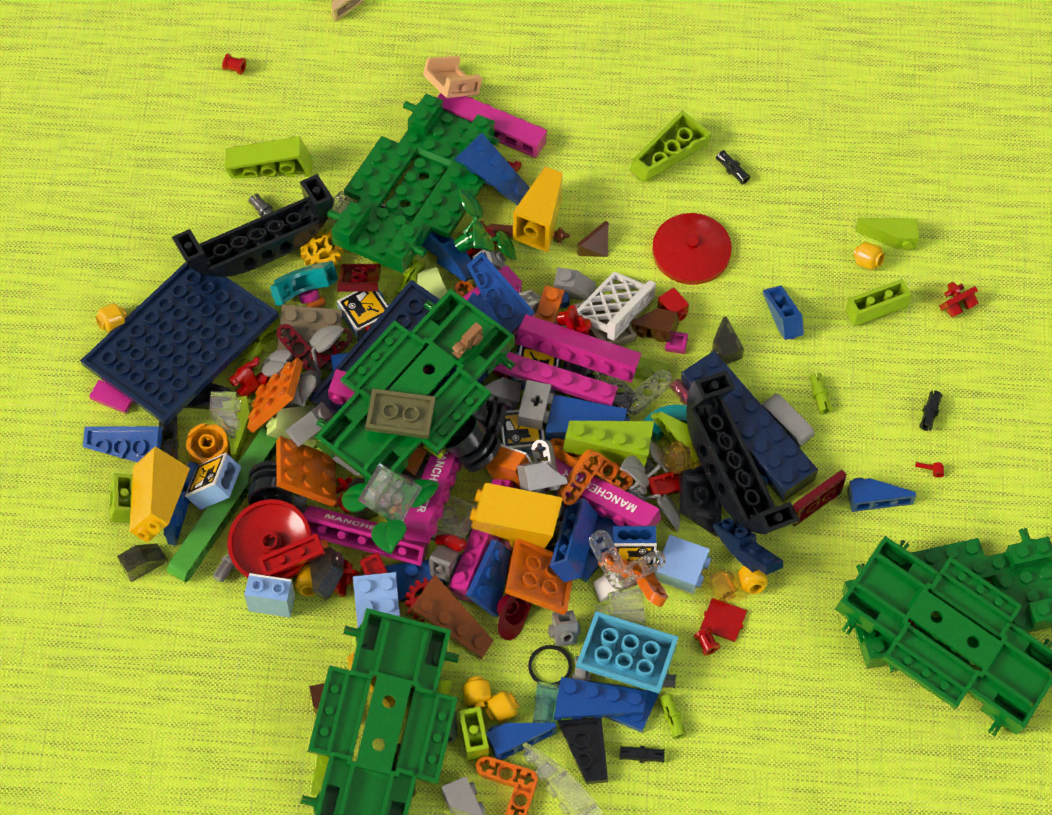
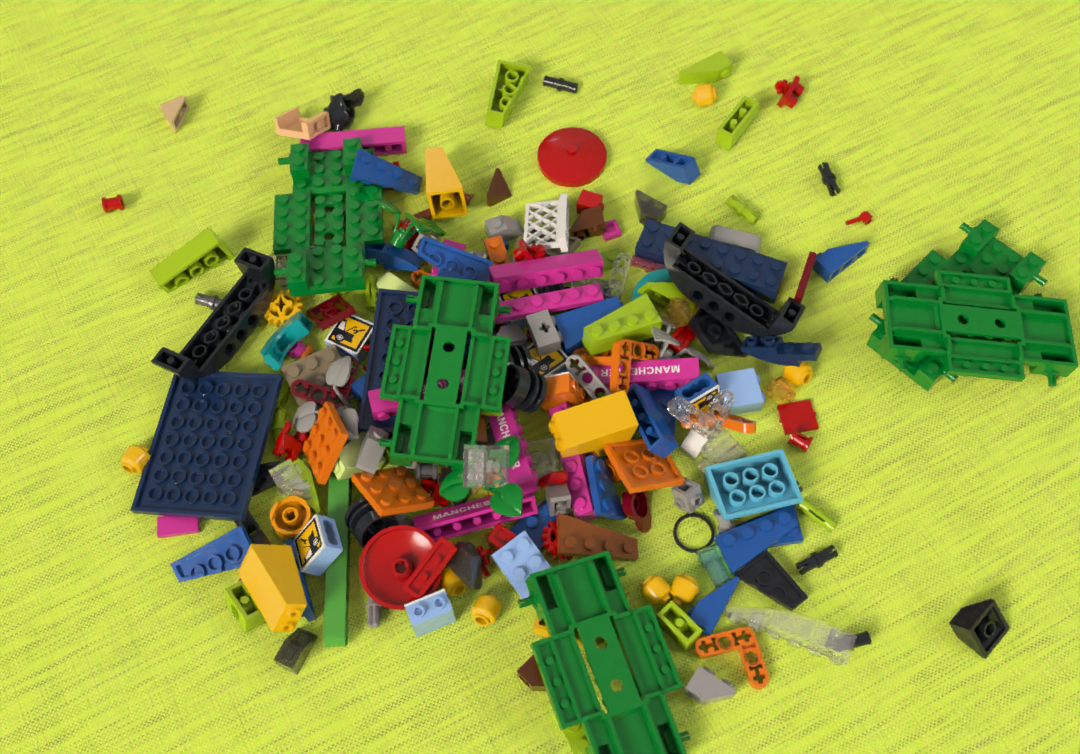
camera: 30 degrees left, 0 degrees up
(320, 621) = (486, 609): none -> yellow head
(345, 470) = (425, 470): none -> dark grey bush
(400, 413) = (451, 395): olive plate -> none
(470, 338) = (469, 302): medium nougat plate -> none
(500, 82) = (342, 109): none -> black head
(538, 476) = (591, 384): light grey slope -> none

